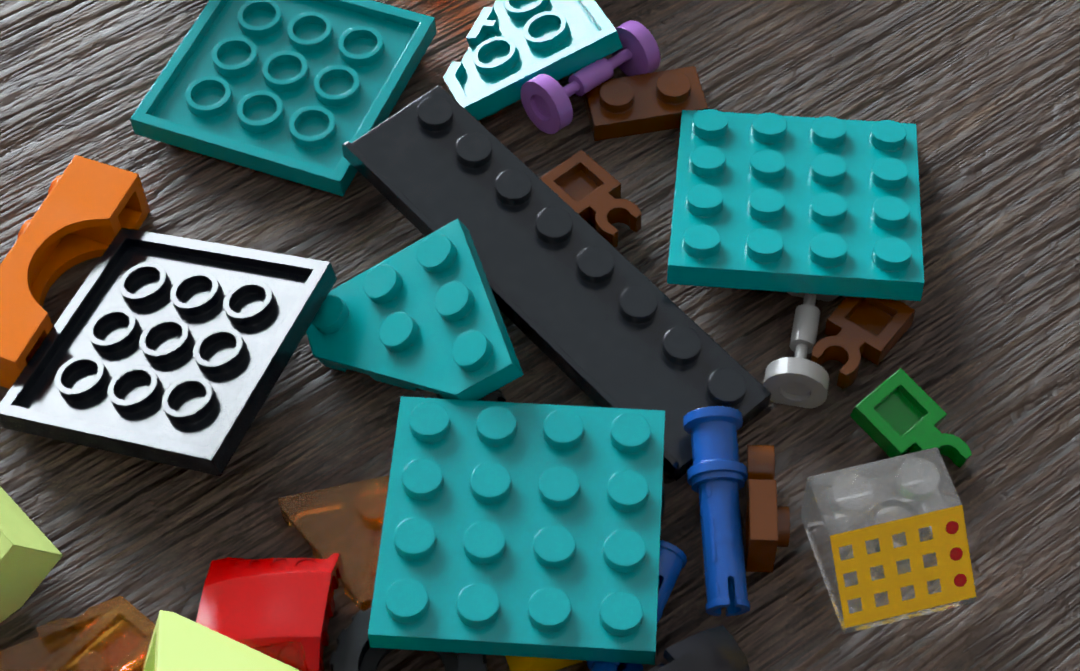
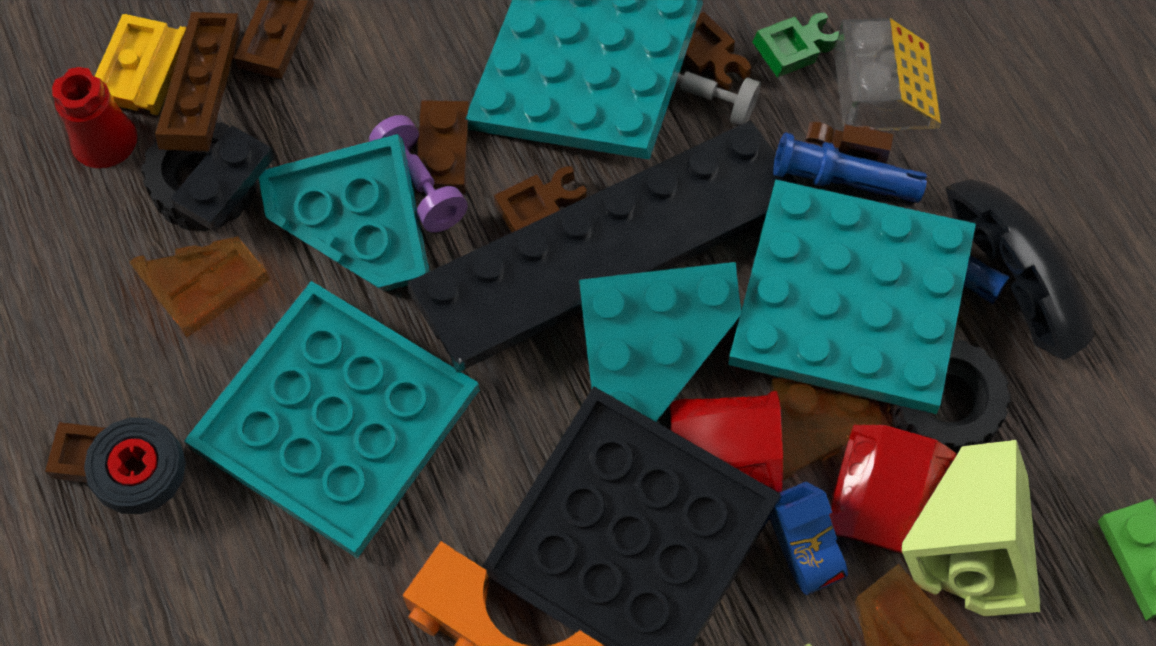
camera: 80 degrees left, 10 degrees up
(188, 526) = (808, 538): none -> blue leg
(306, 438) = (736, 430): none -> red slope

